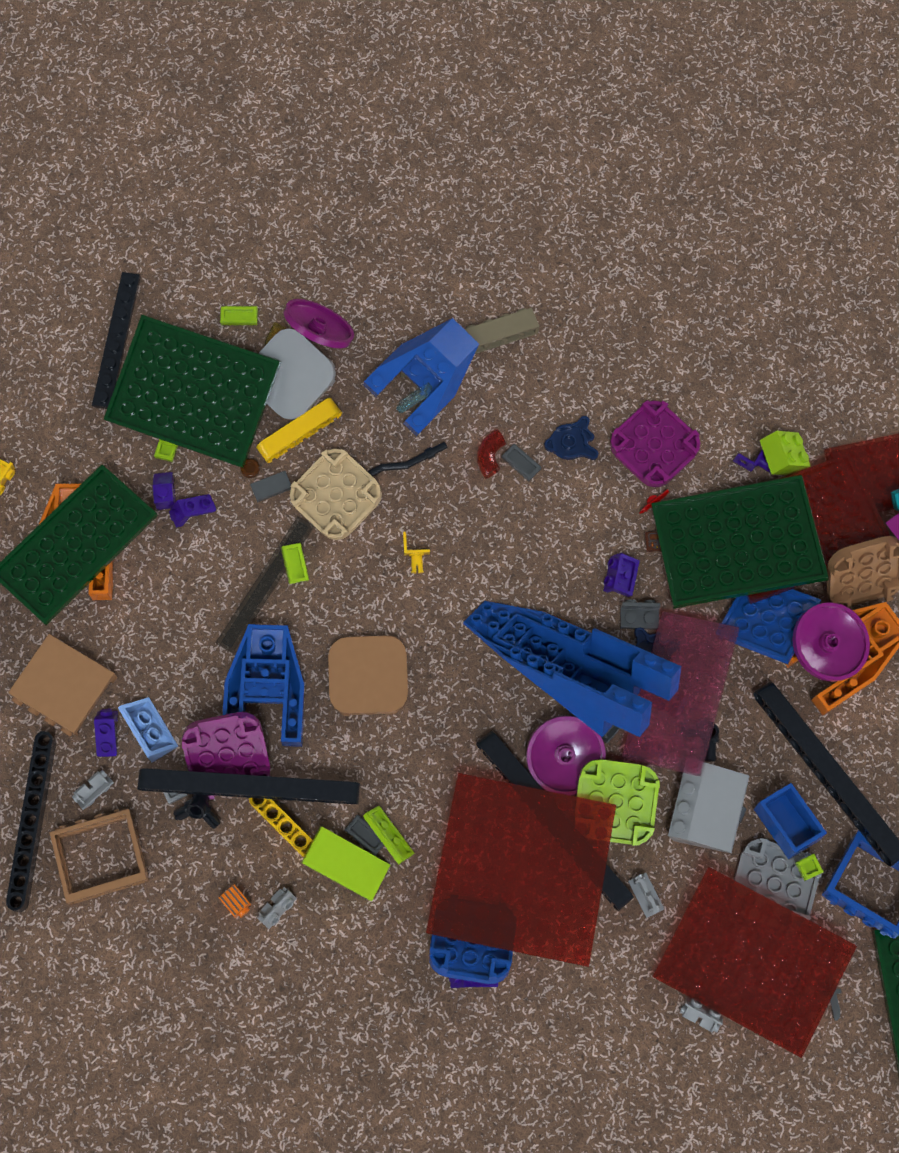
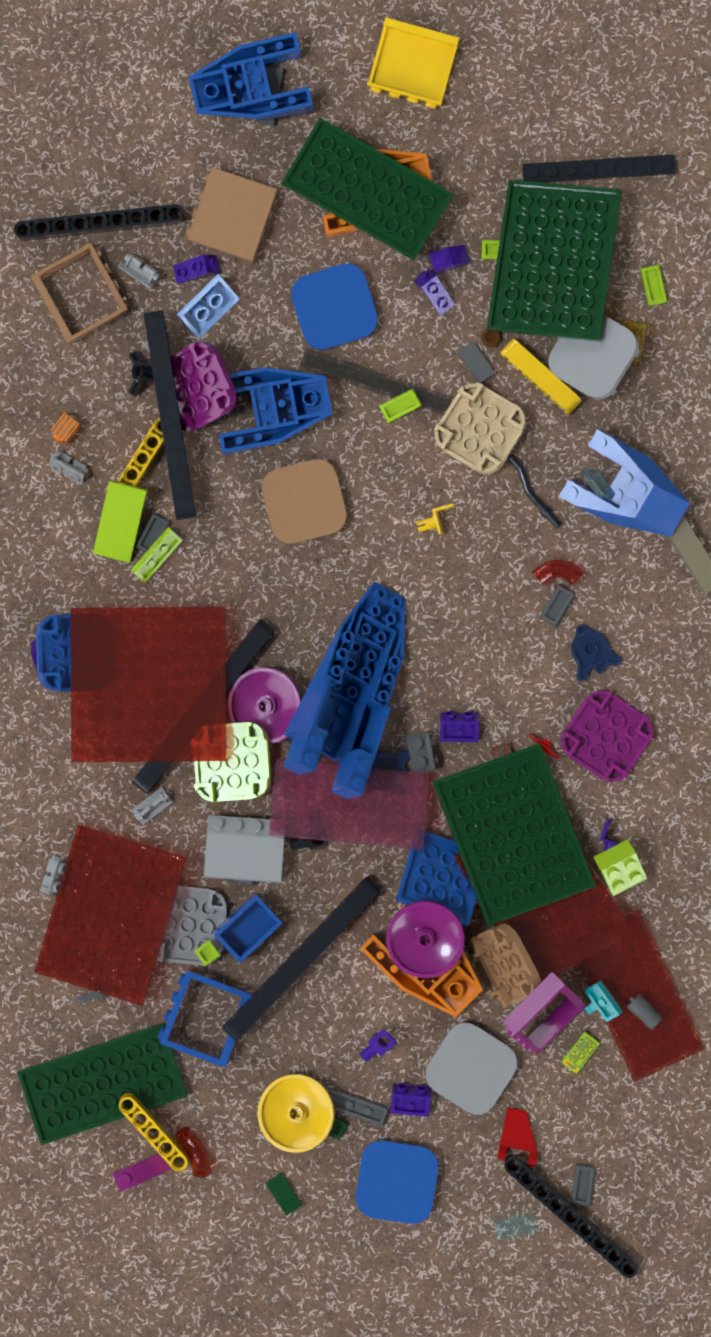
camera: 85 degrees right, 15 degrees up
(181, 605) = (334, 306): none -> blue tile
(318, 323) = (653, 369): magenta dish -> none

